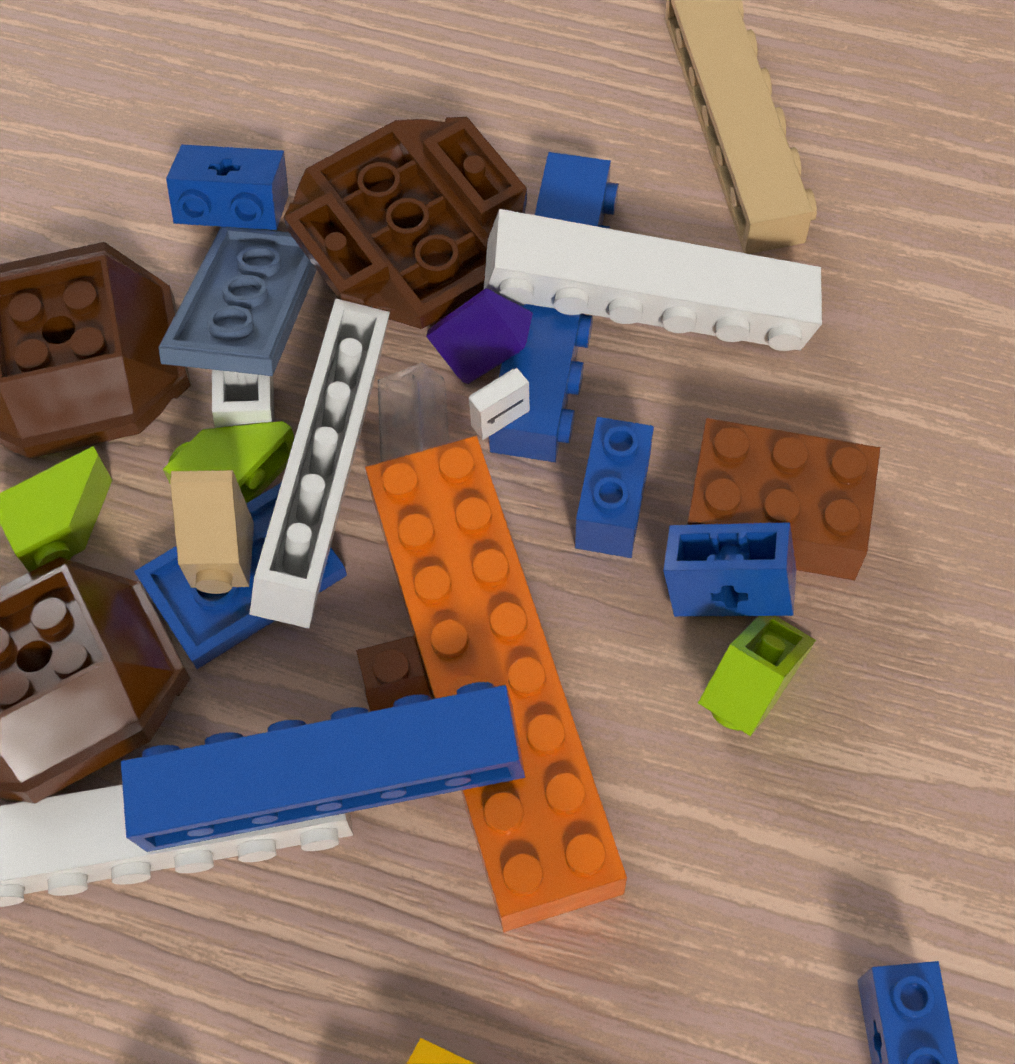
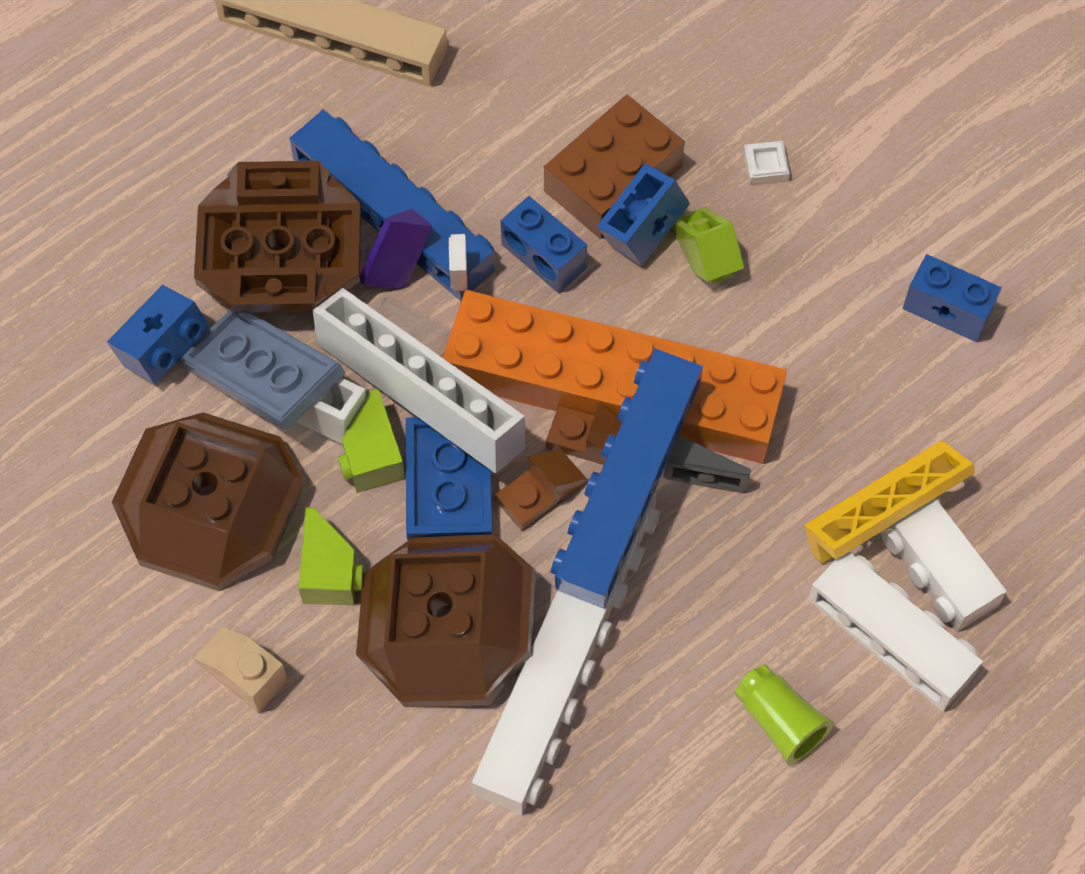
camera: 60 degrees left, 0 degrees up
(212, 530) = (429, 462): tan slope -> none
(295, 681) = (543, 486): none -> dark orange slope
(430, 837) = (703, 467): none -> dark grey slope
(653, 281) = (430, 139): white brick -> none
(936, 675) = (766, 162): none -> white tile

